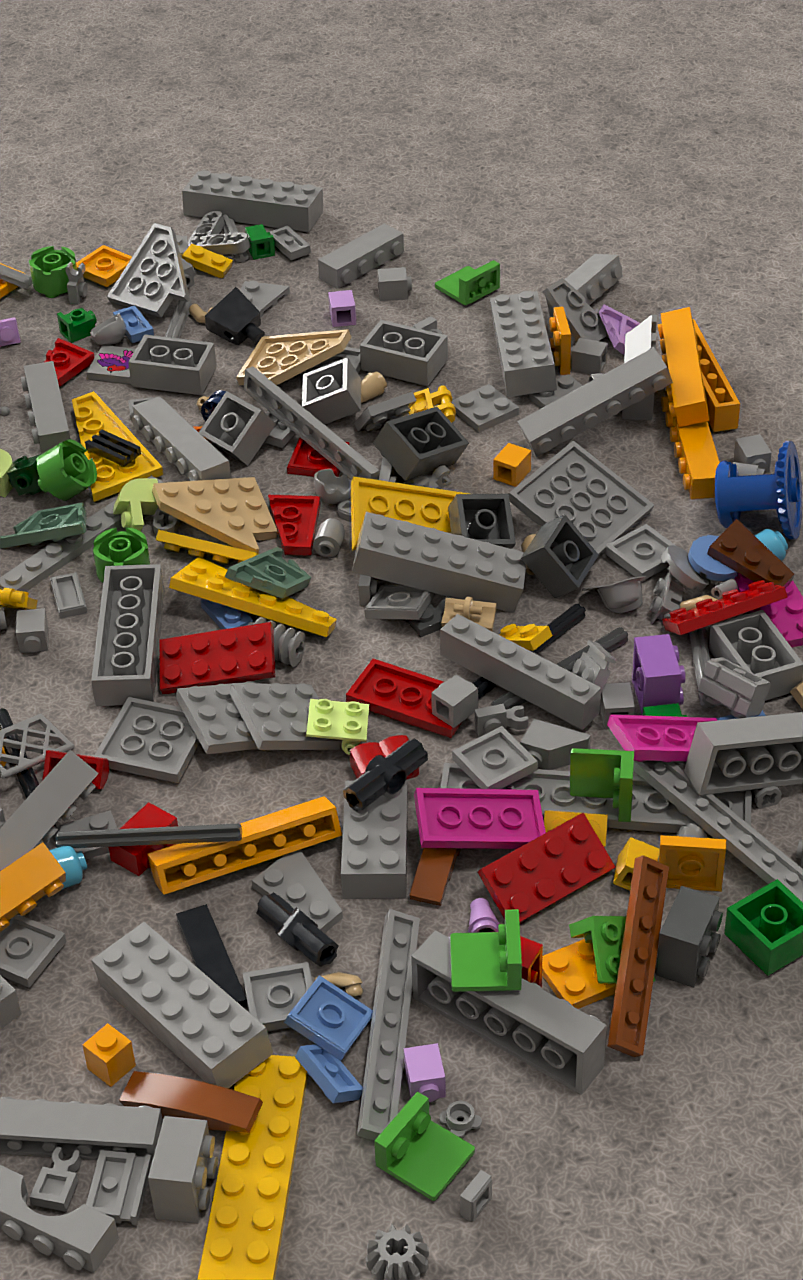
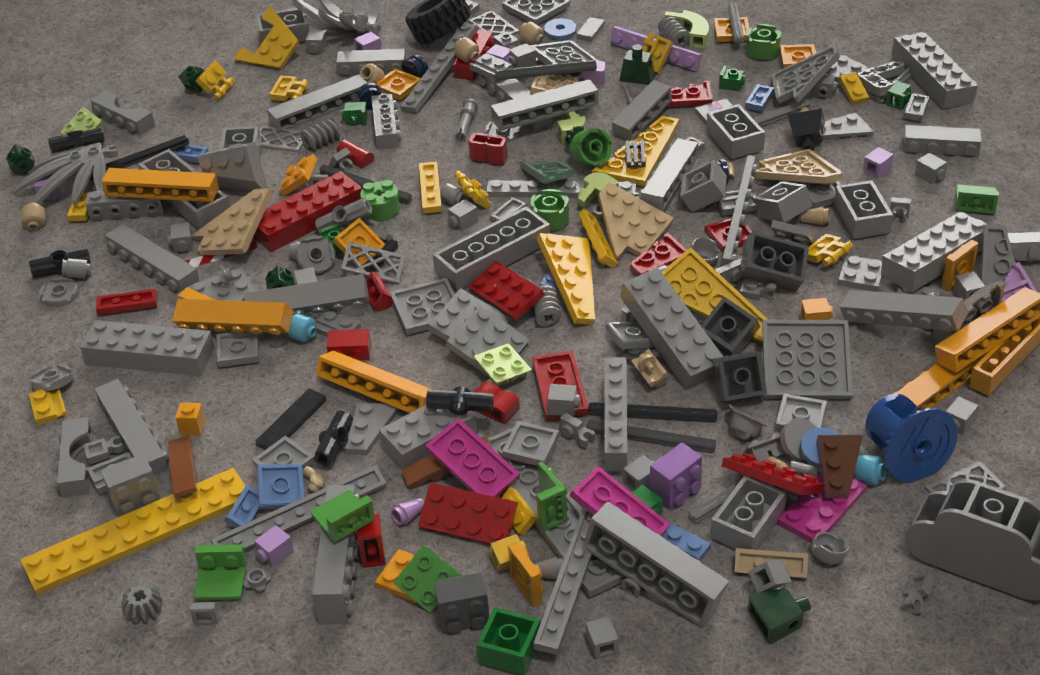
camera: 55 degrees right, 0 degrees up
(76, 286) = (763, 57): light grey plate -> none
(110, 331) = (737, 94): light grey hair -> none
(150, 836) = (338, 342): dark grey axle -> none
(182, 1007) = (237, 425): light grey brick -> none
(270, 574) = (595, 271): sand green wing -> none
(526, 636) = (655, 400): yellow plate -> none
(552, 744) = (573, 462): light grey slope -> none
(594, 665) = (651, 444): light grey plate -> none
(638, 957) = (420, 586): dark orange plate -> none
(733, 687) = (697, 515): light grey brick -> none

